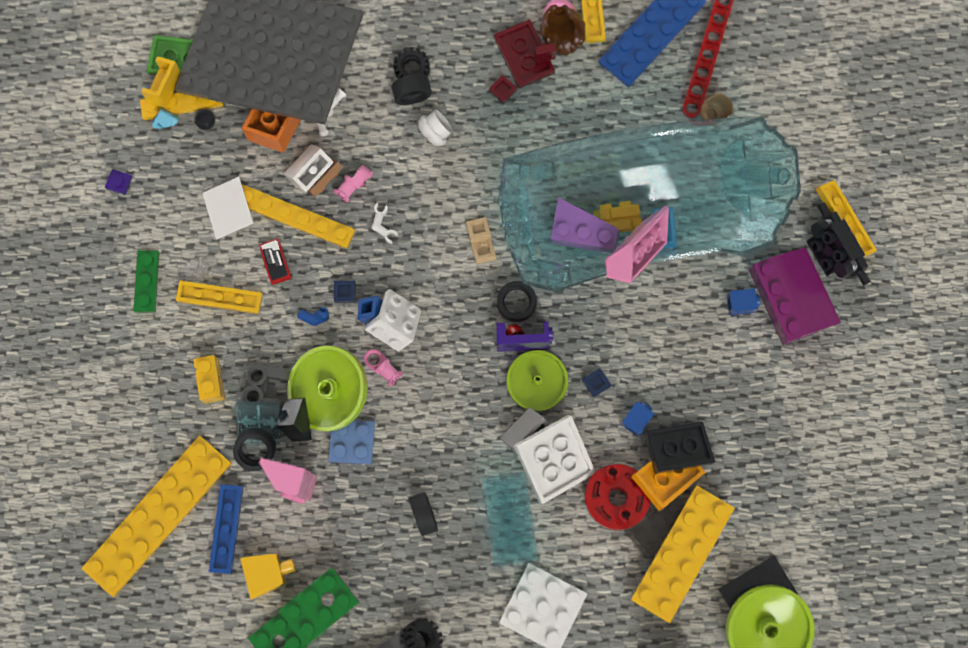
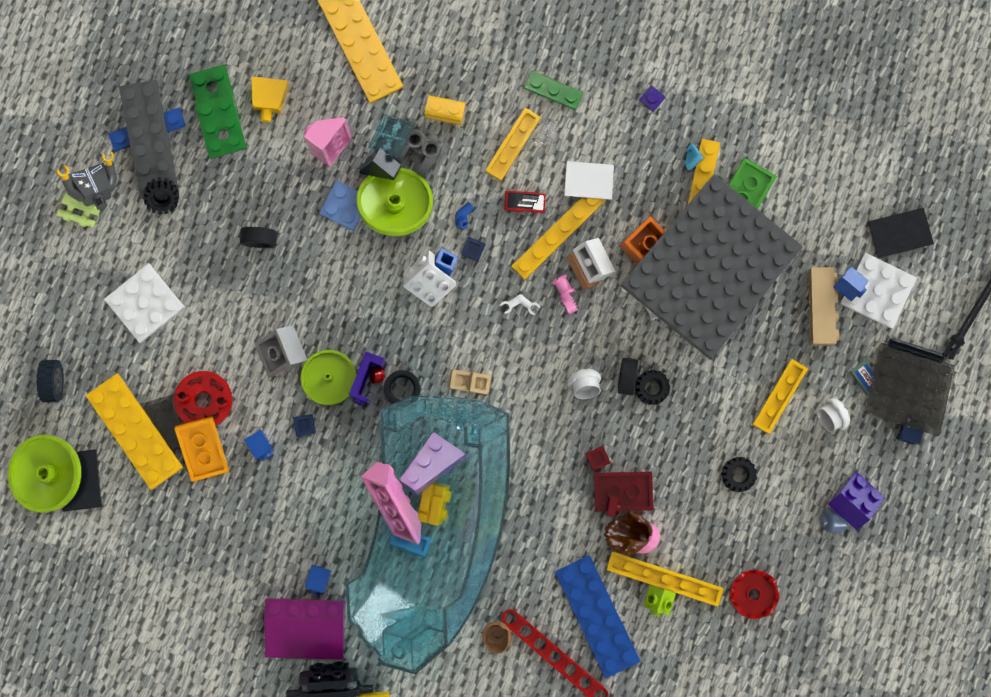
camera: 110 degrees right, 5 degrees up
(163, 84) = (722, 166): yellow panel -> none
(204, 120) = (678, 191): black plate -> none
(226, 529) = (317, 79): blue plate -> none
(251, 433) = (379, 131): black tyre -> none
(383, 368) = (394, 254): bright pink connector -> none
(510, 519) = (223, 304): clear light blue brick -> none
(554, 459) = (254, 361): white plate -> none
(679, 447) = (219, 467): black tile -> none

